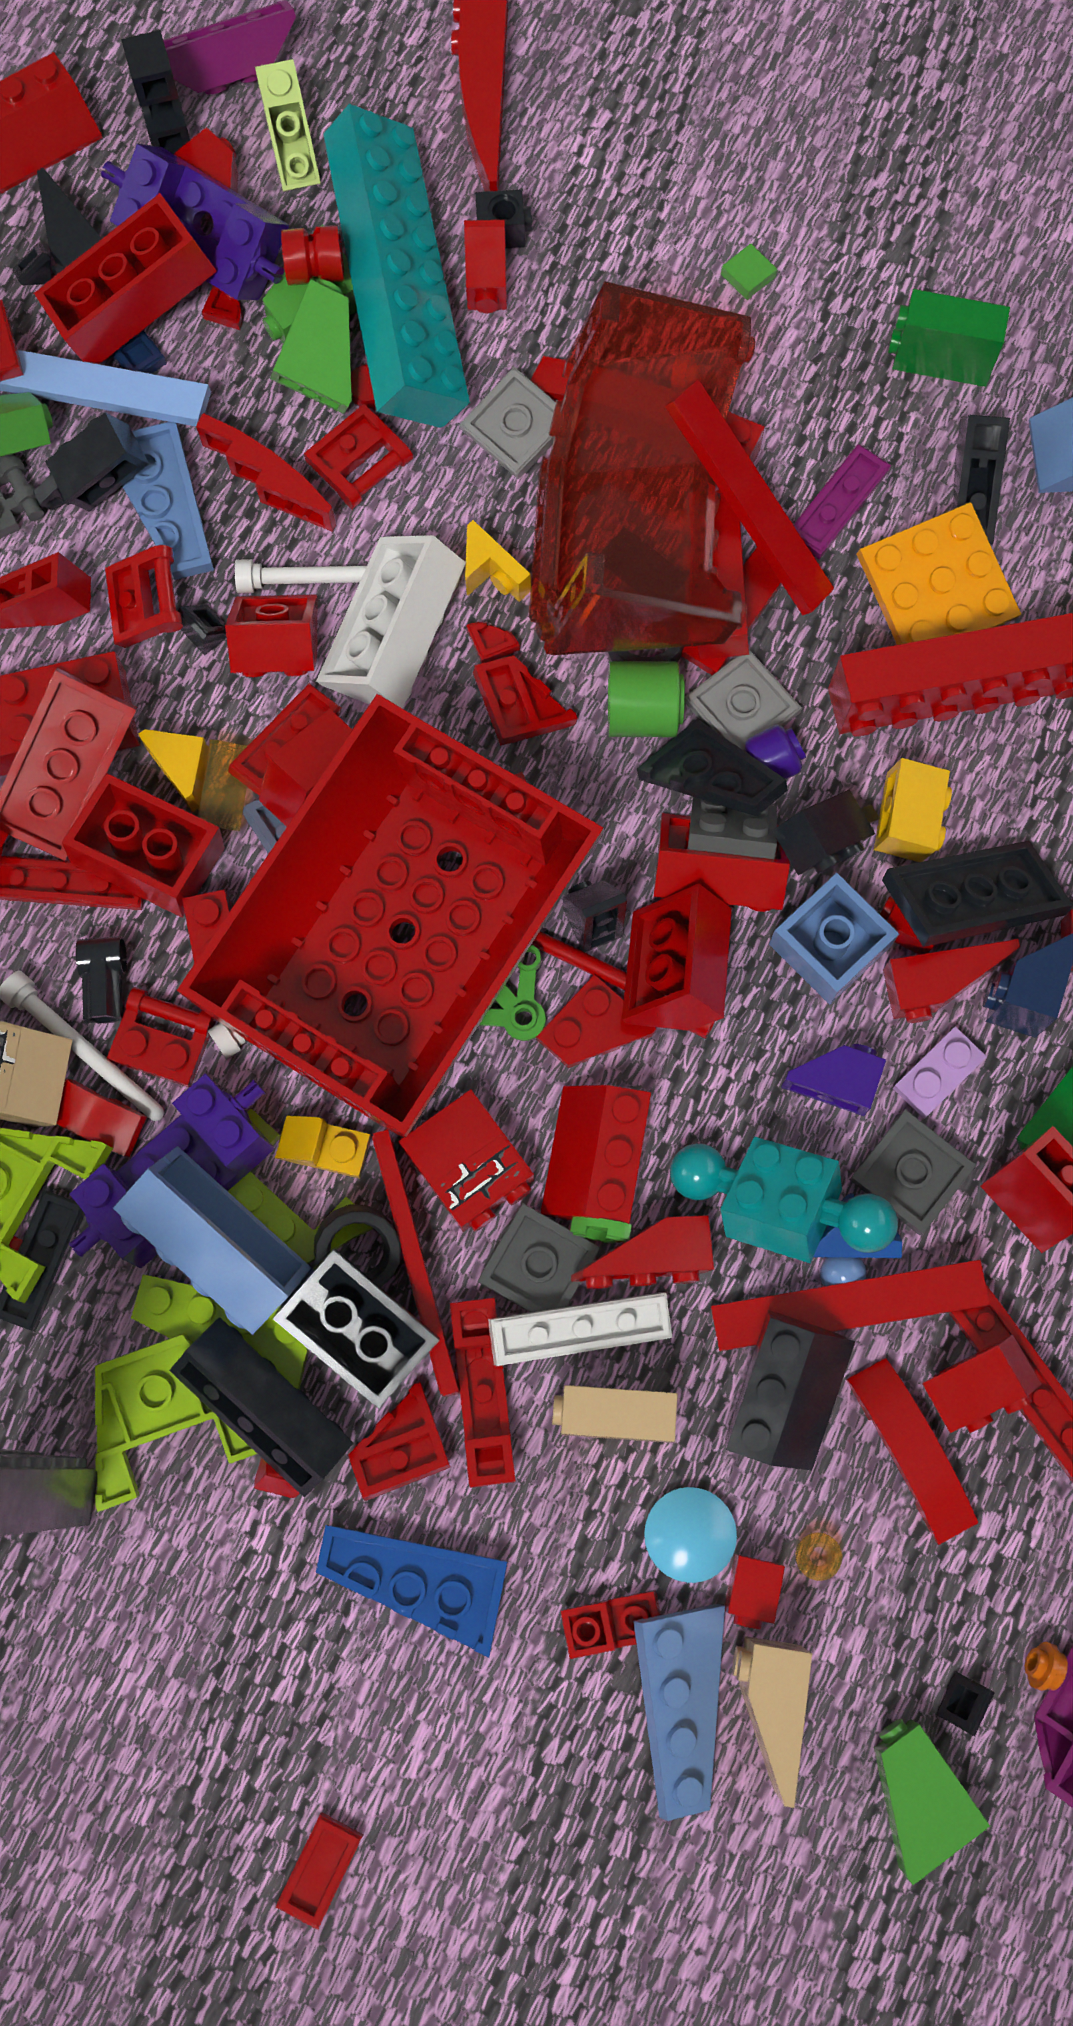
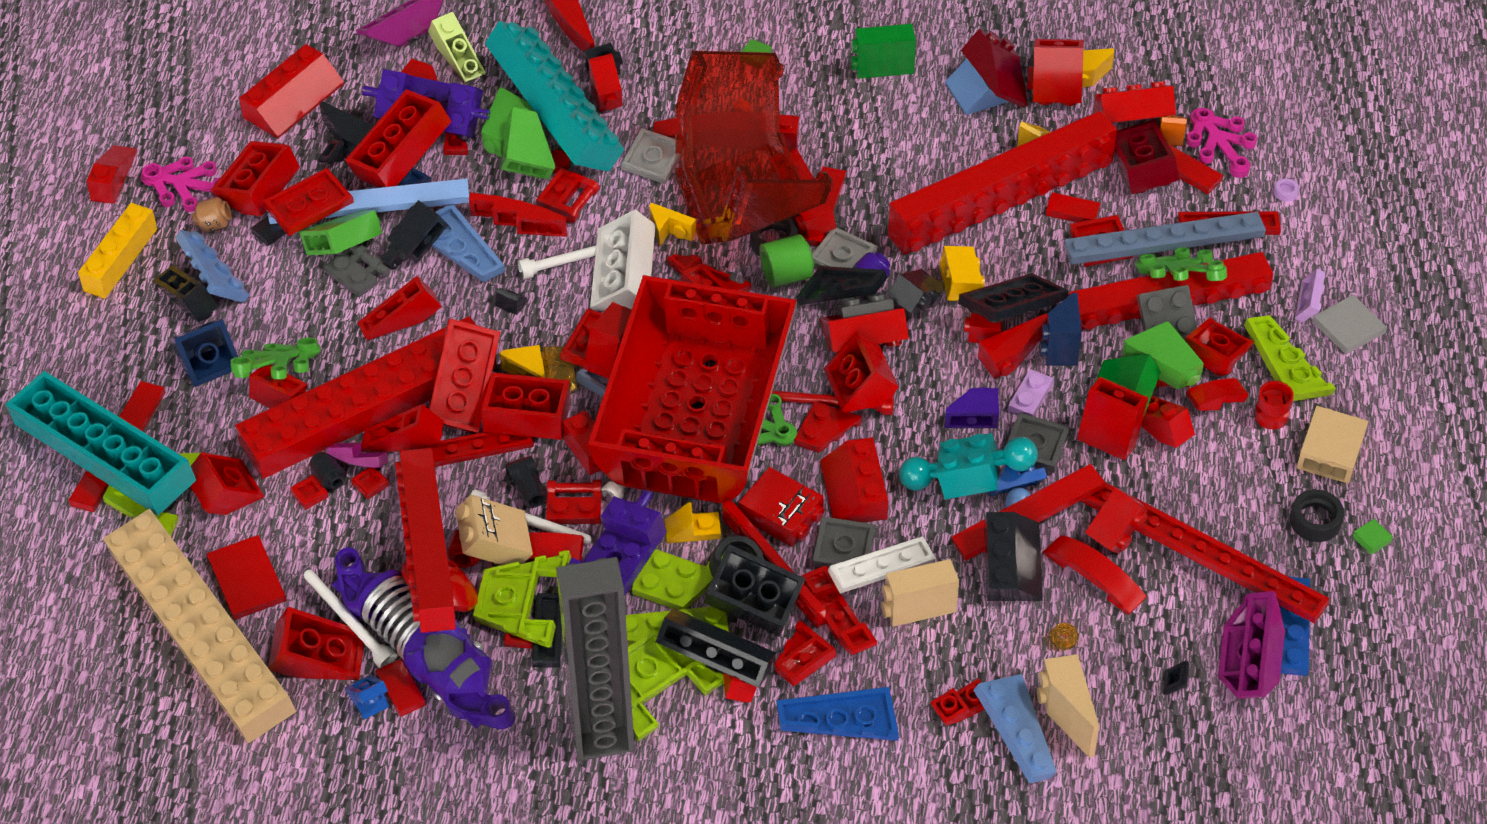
camera: 20 degrees left, 25 degrees down
(132, 597) = (463, 294): red plate -> none
(156, 90) = (377, 37): black arch -> none
(212, 1239) = (657, 565): medium blue piece -> none
(272, 635) = (557, 291): red slope -> none
(312, 254) = (502, 100): red wheel -> none
(595, 913) = (805, 365): black slope -> none
(601, 1229) = (874, 514): bright green tile -> none
(666, 1248) = (911, 514): red slope -> none
(690, 1534) = (987, 648): medium azure dish -> none
(749, 496) = (807, 146): red tile -> none
(754, 1591) = (1031, 656): red brick -> none
(833, 938) = (943, 343): medium blue brick -> none
(840, 499) = (855, 145): magenta tile -> none
(923, 1800) = (1172, 726): bright green slope -> none
(938, 578) = (923, 160): light orange plate -> none
(980, 467) = (928, 112): black slope -> none
(1046, 1667) = (1212, 647): orange plate -> none

